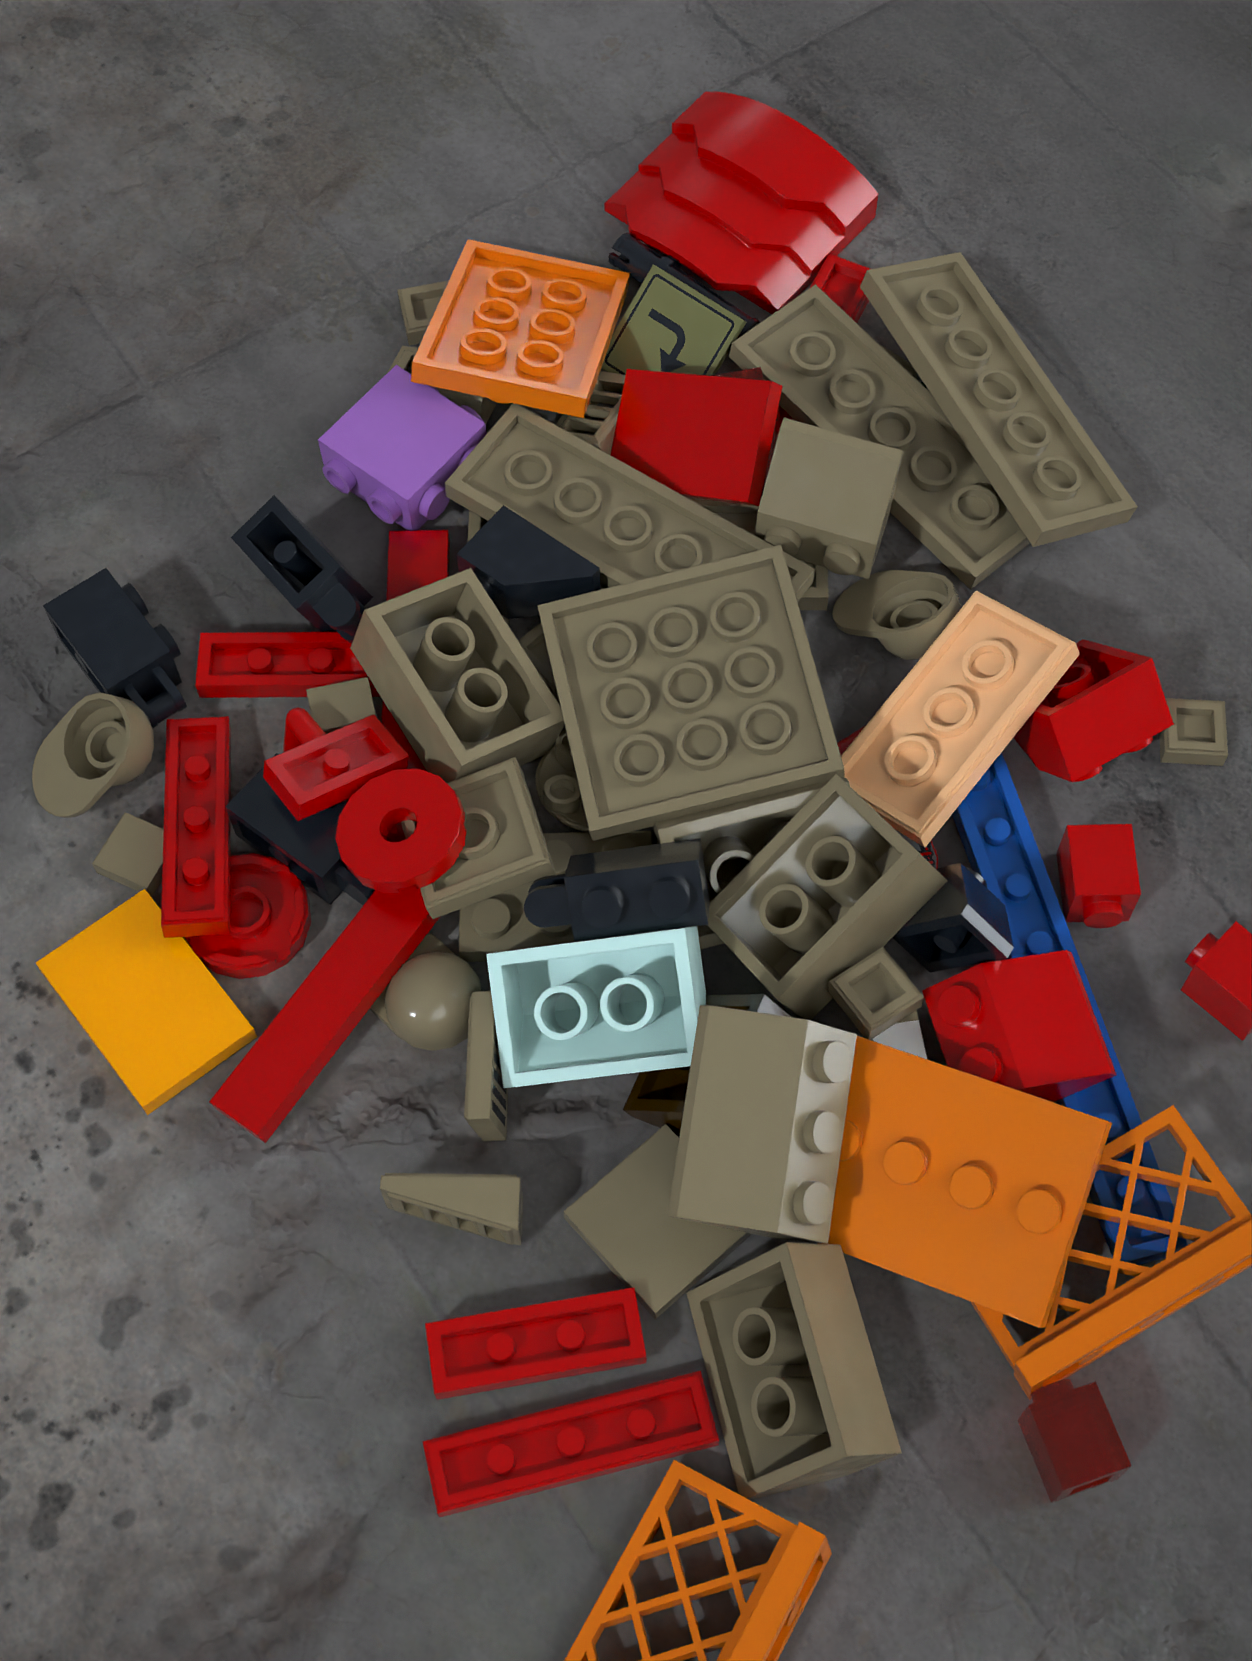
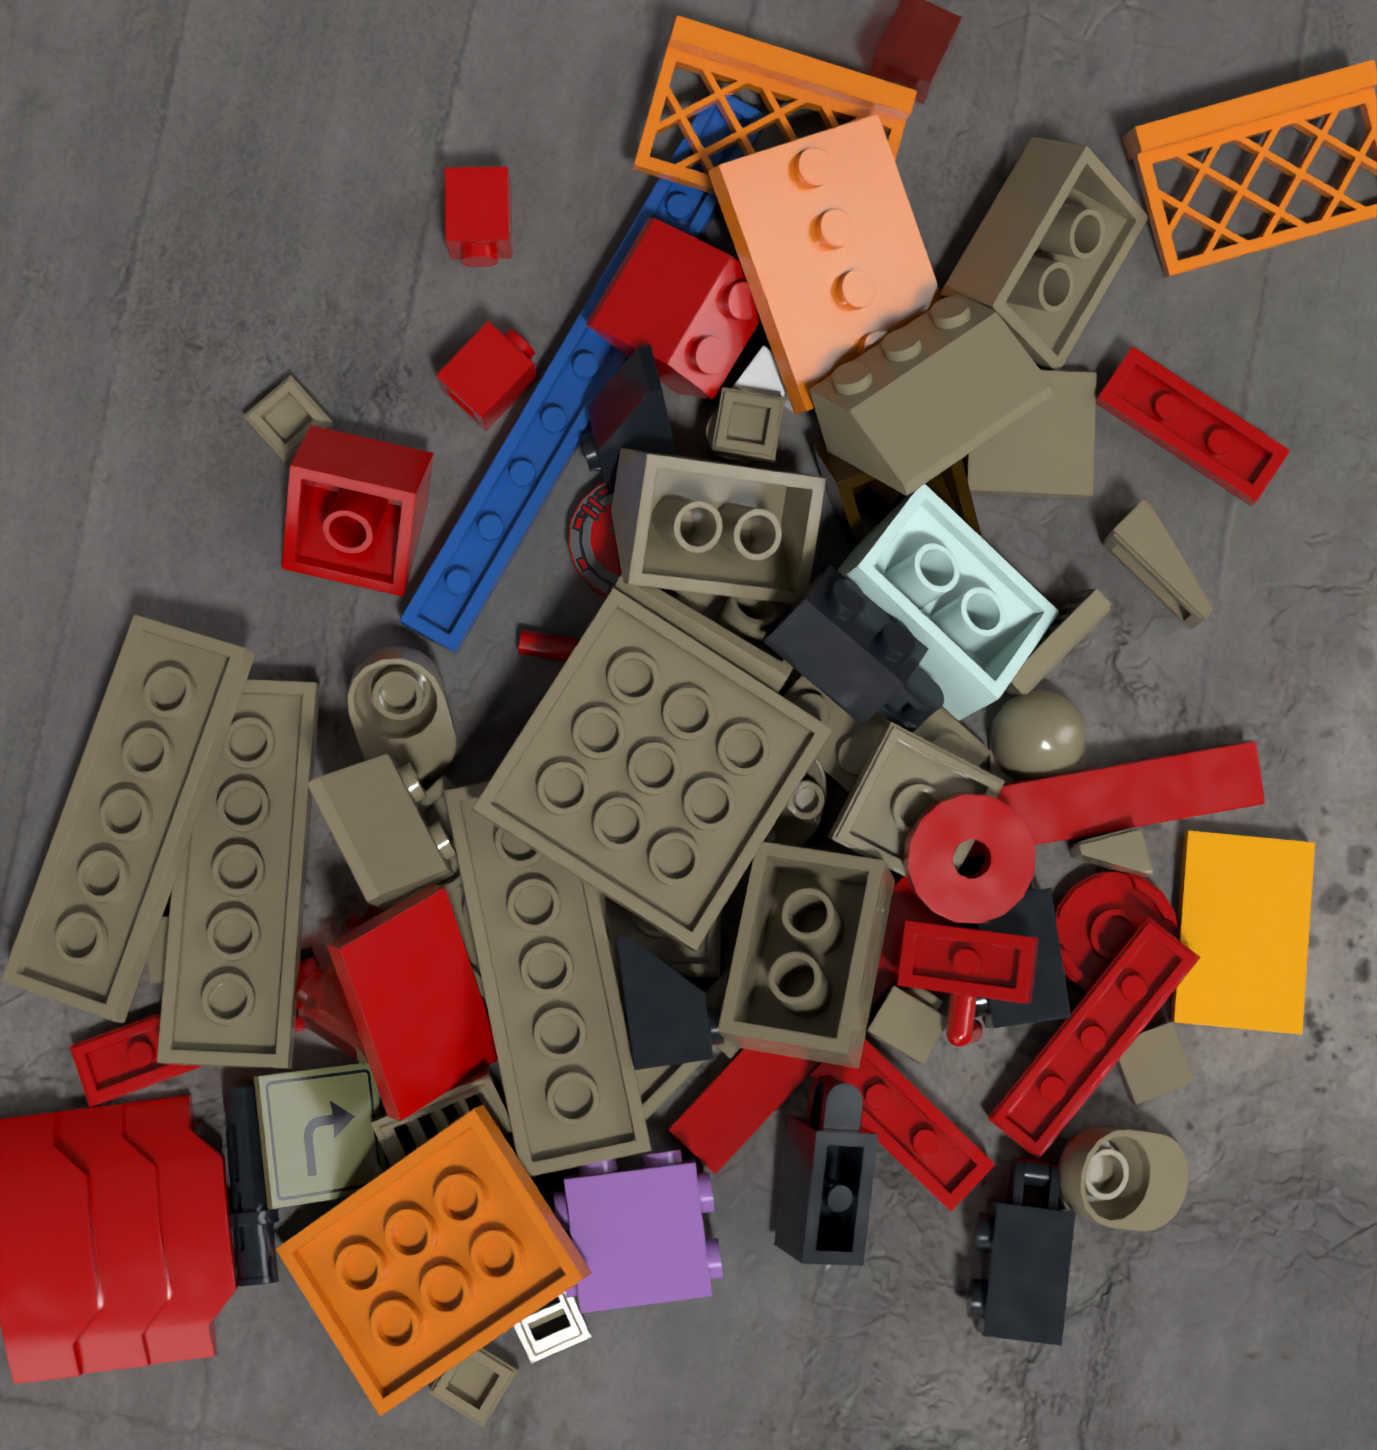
camera: 140 degrees left, 20 degrees up
(293, 957) = (1118, 851): none -> dark tan slope
(570, 1443) = (1223, 349): red tile -> none
(954, 715) = (468, 577): light nougat tile -> none

